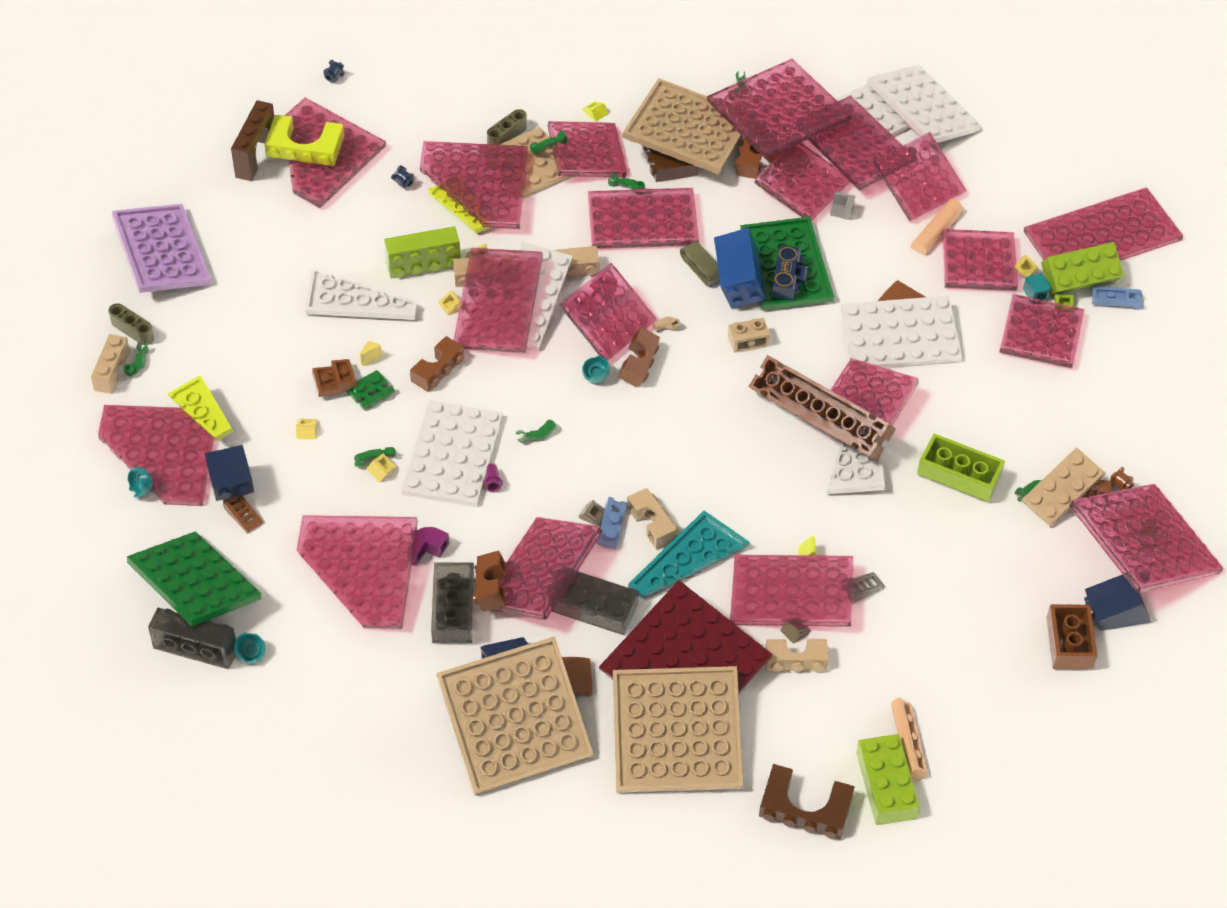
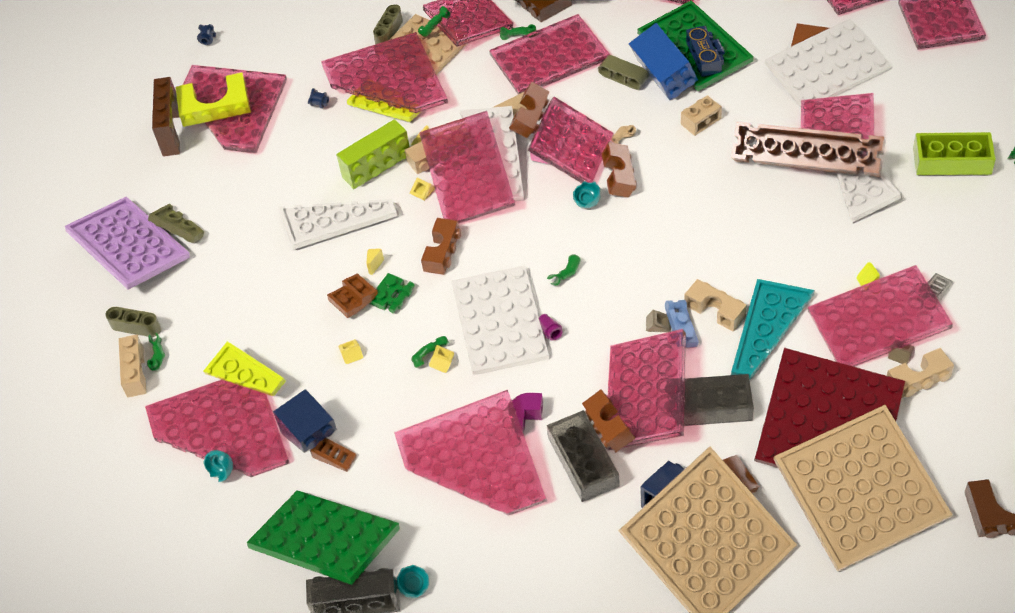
camera: 15 degrees left, 0 degrees up
(213, 247) = (176, 224): none -> olive wing
(595, 257) = (526, 120): none -> arch

